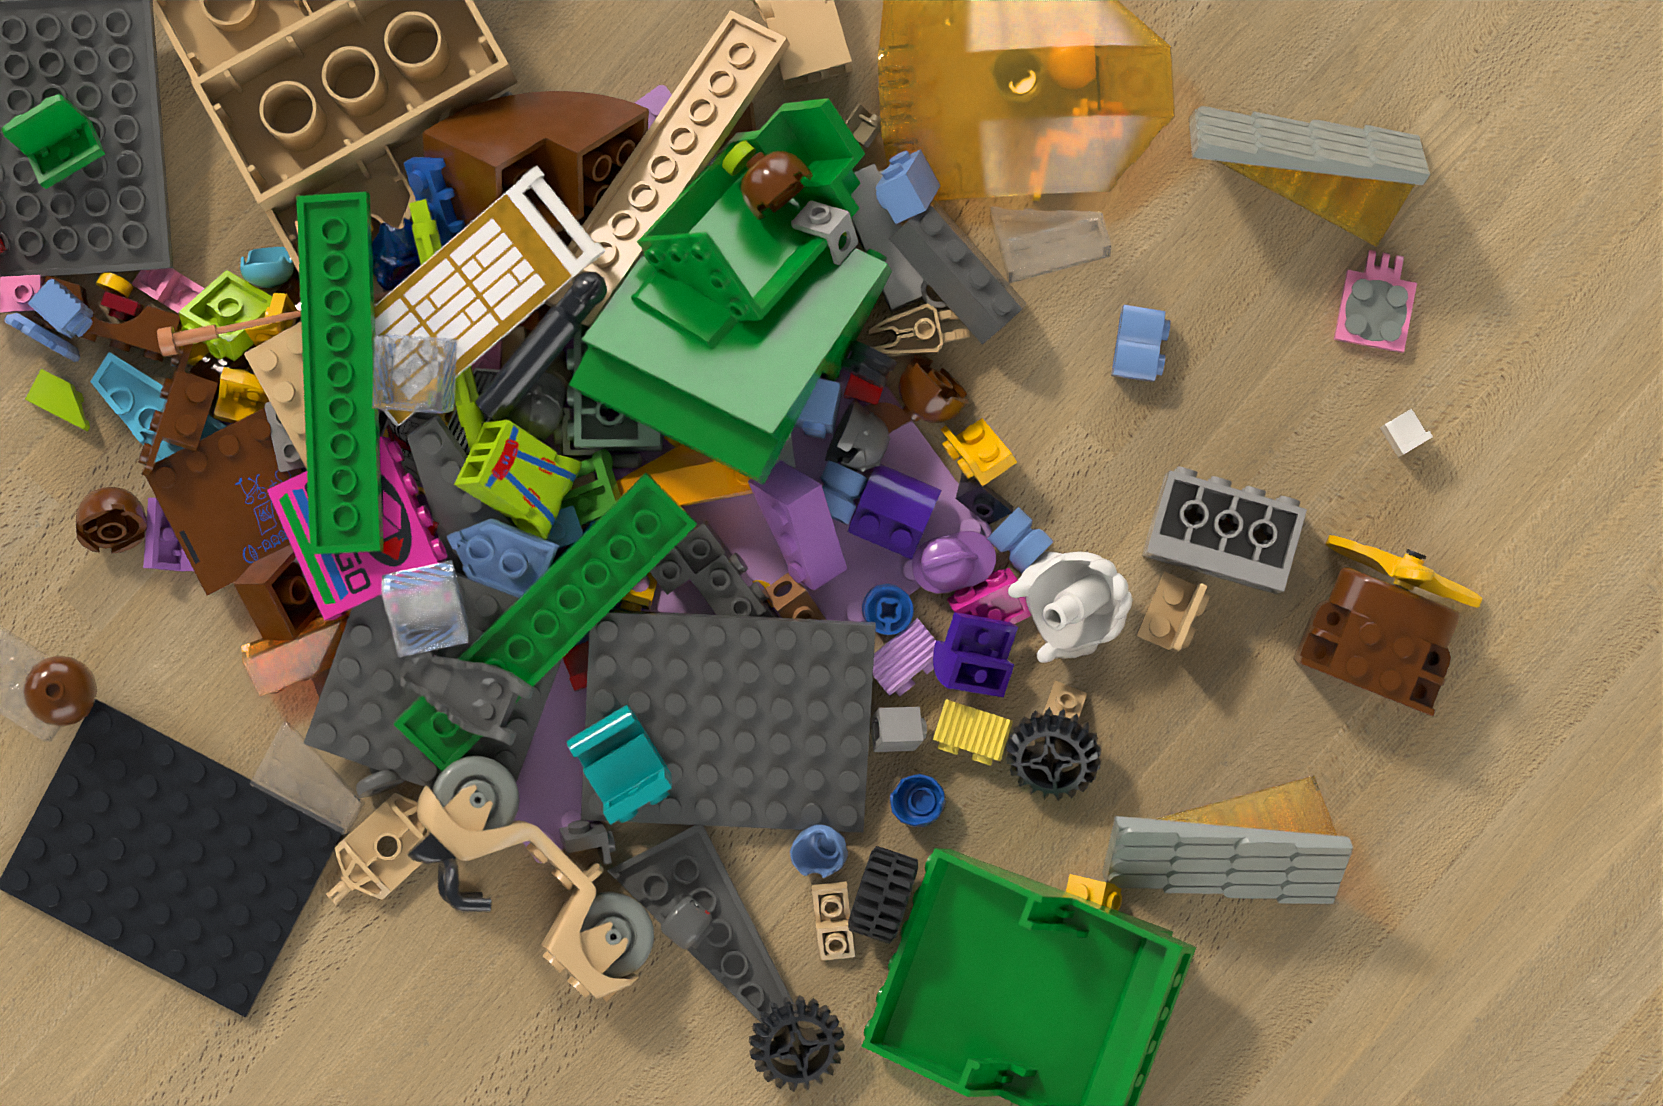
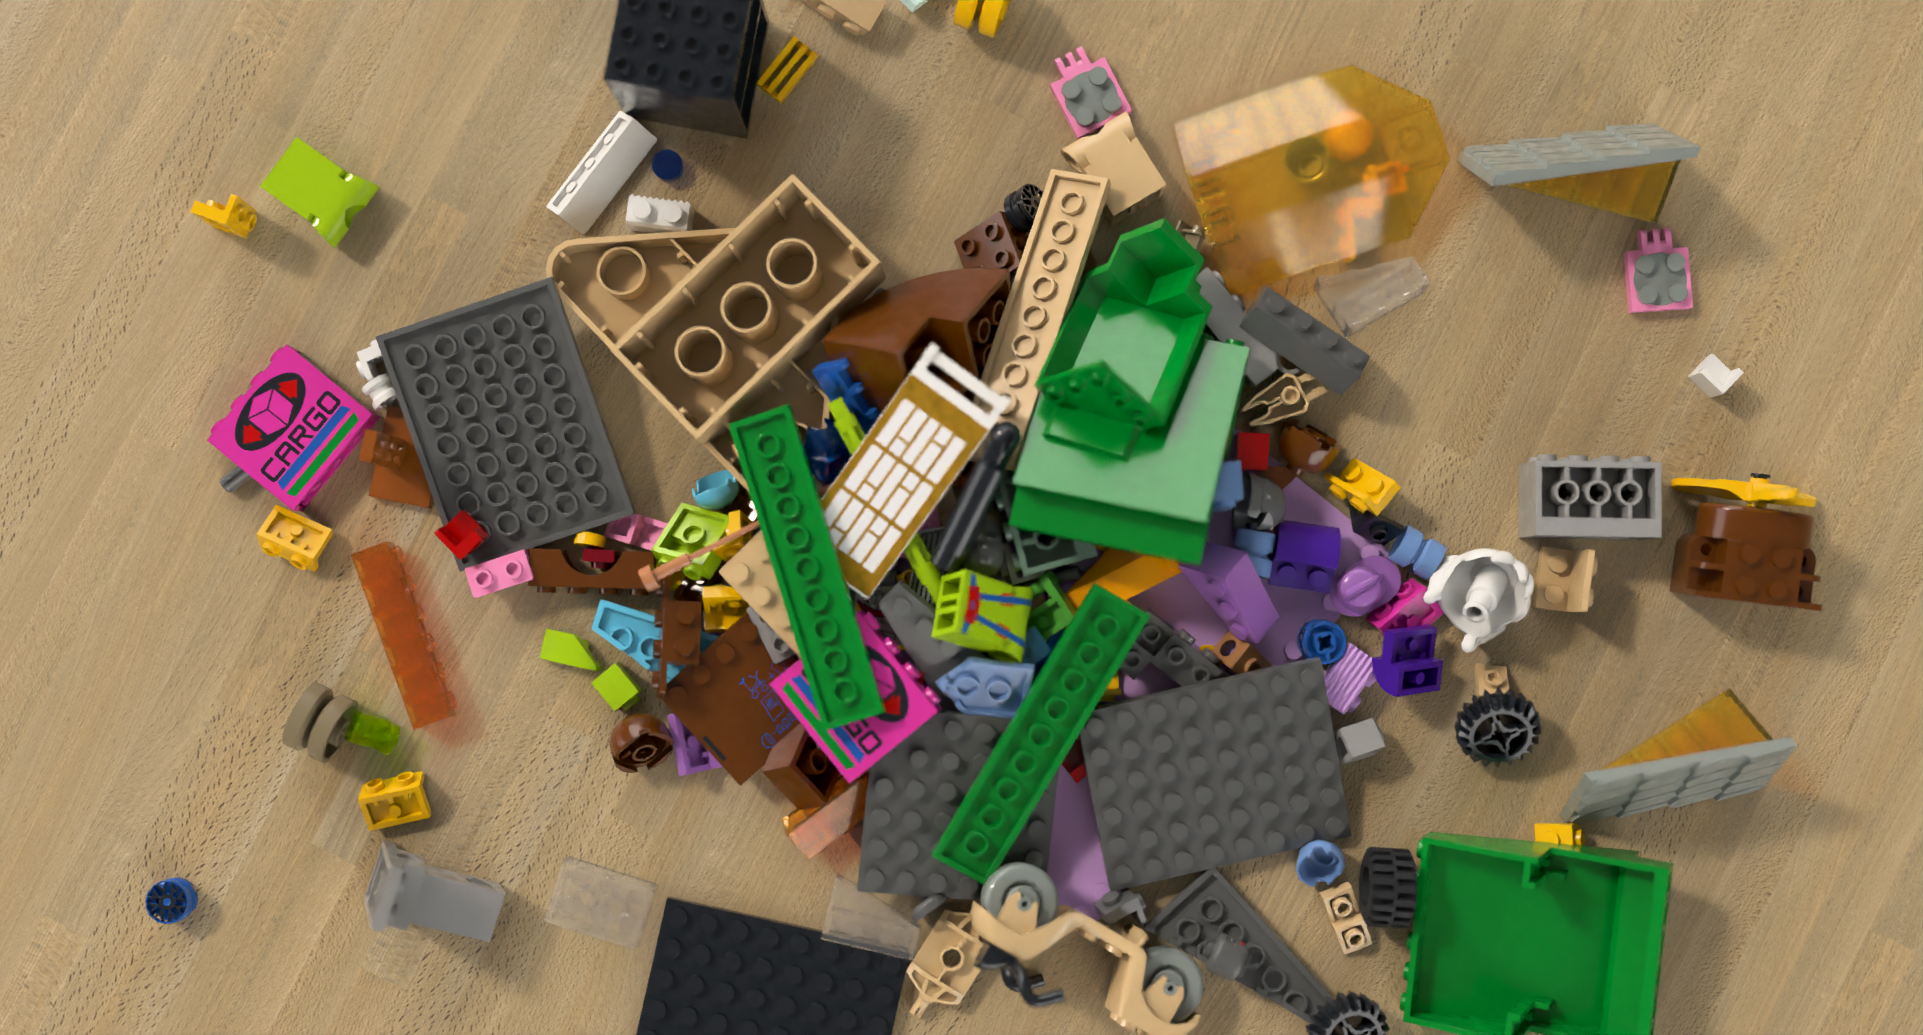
camera: 20 degrees left, 0 degrees up
(43, 336) = (541, 601): medium blue tile -> none
(54, 139) = (505, 430): green bracket -> none
(60, 690) = (636, 903): reddish brown cylinder -> none
(62, 309) = (550, 574): medium blue brick -> none
(102, 454) = (618, 687): none -> lime brick
(414, 373) = (872, 550): clear container -> none
(425, 608) = (935, 751): clear container -> none
(470, 693) = (993, 814): dark grey animal -> none
(622, 764) = (1138, 839): teal piece -> none
(646, 75) = (992, 245): none -> reddish brown bracket
(687, 42) = (1022, 207): none -> black wheel
(738, 157) = (1097, 290): lime tile -> none
(772, 181) = (1133, 302): reddish brown cylinder -> none
(830, 224) = (1191, 326): light grey bracket -> none
(869, 364) = (1254, 437): black wheel -> none
(907, 186) = (1243, 278): medium blue brick -> none
(918, 801) = (1391, 797): blue hair -> none
(972, 731) = (1420, 725): light yellow brick -> none
(1139, 343) = (1470, 359): medium blue brick -> none

